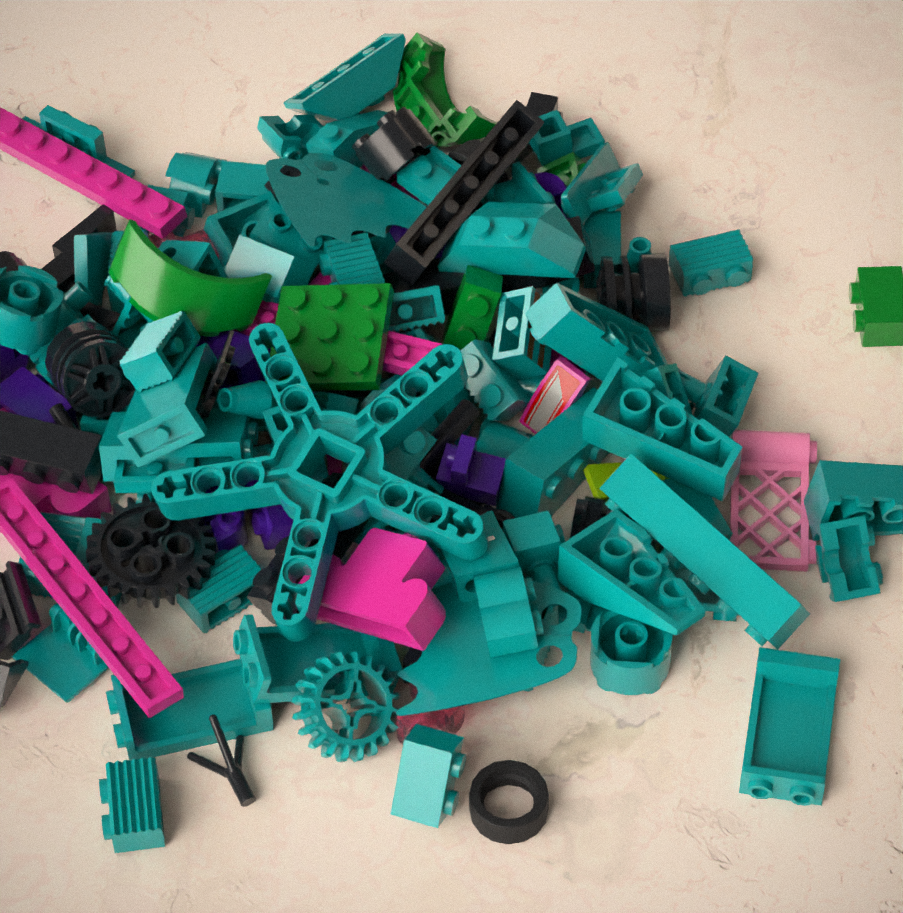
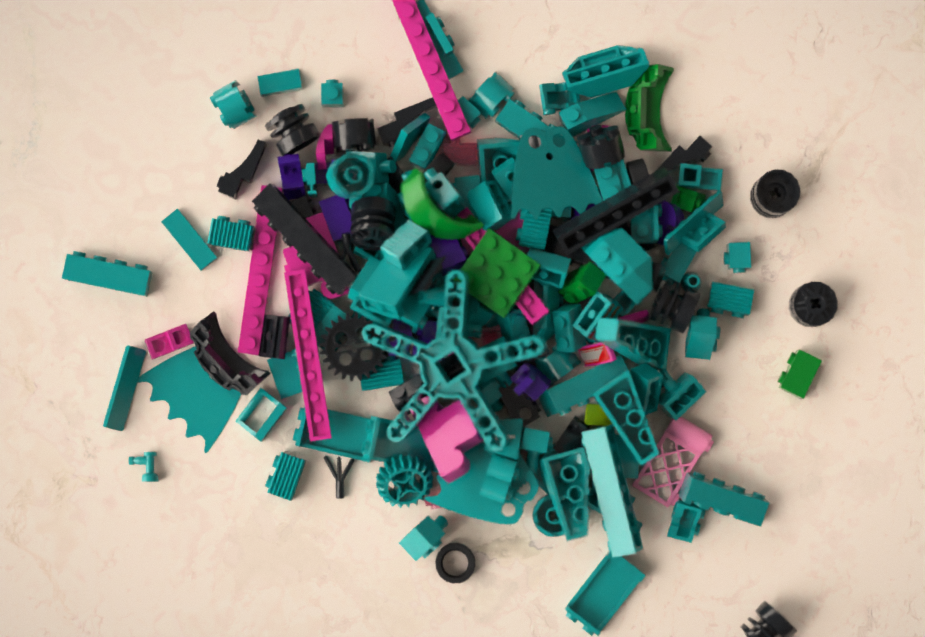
camera: 25 degrees right, 35 degrees up
(56, 762) = (269, 423): none -> teal tile
(686, 111) = (784, 187): none -> black wheel
(686, 209) = (738, 257): none -> teal brick
(702, 311) = (702, 335): none -> teal brick
(836, 211) = (801, 308): none -> black wheel

